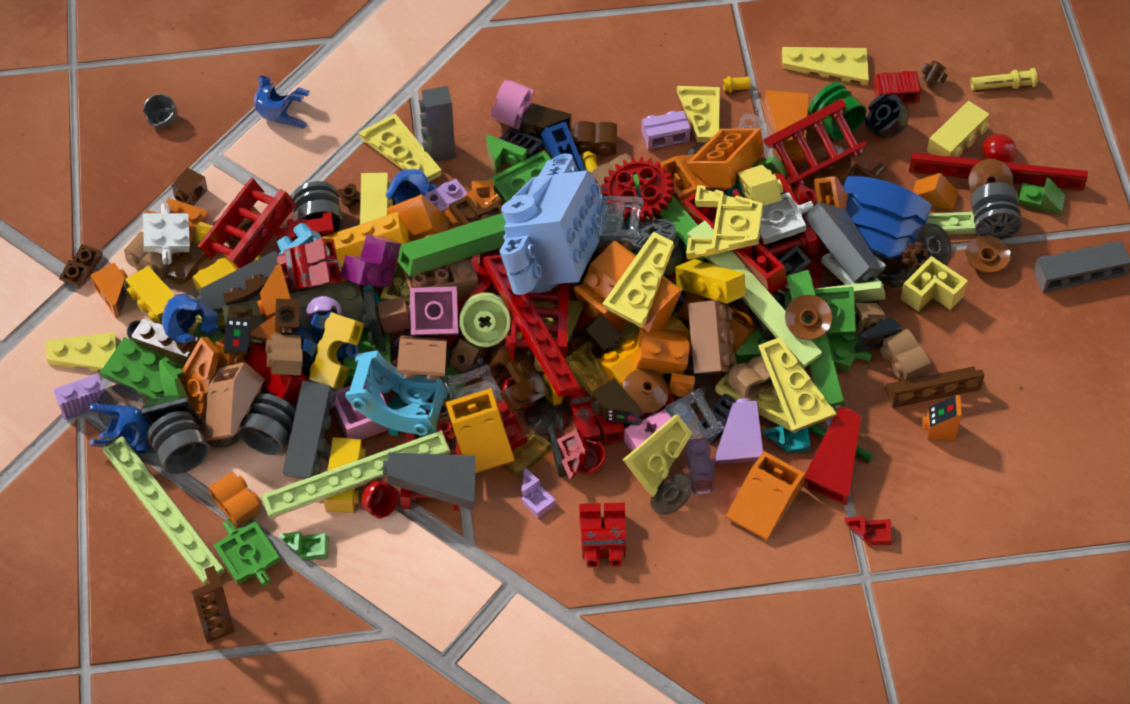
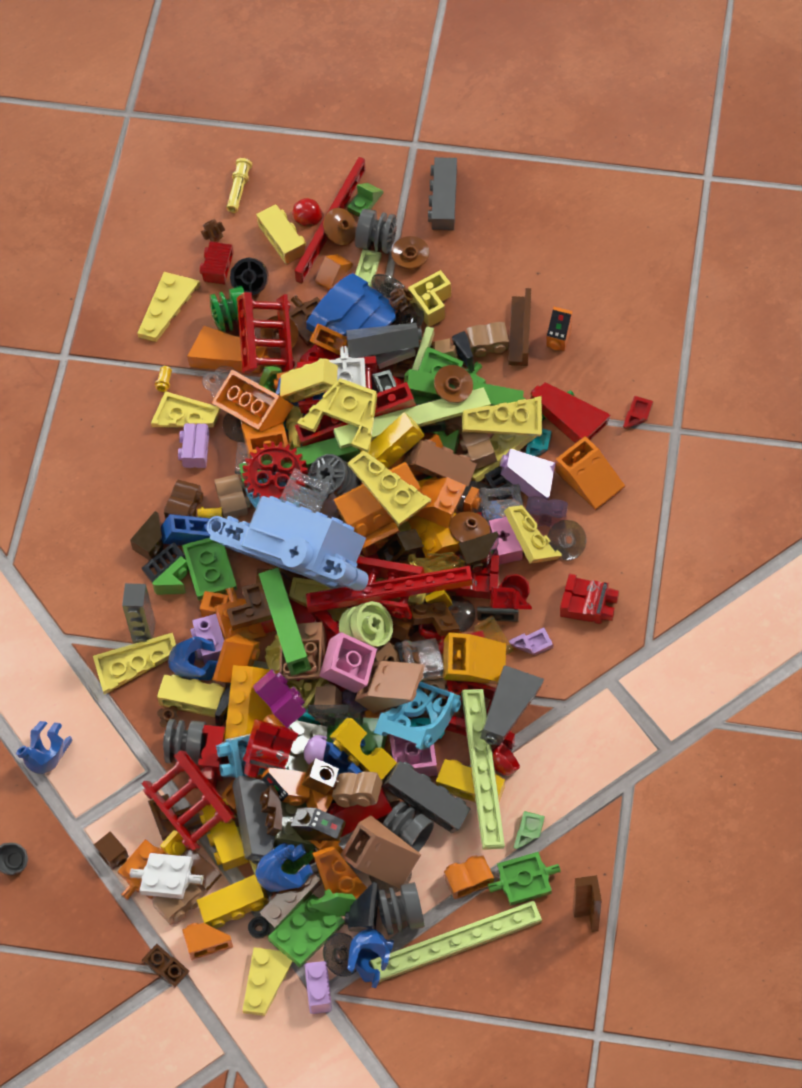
camera: 70 degrees left, 5 degrees up
(512, 103) = (124, 555): bright pink brick -> none

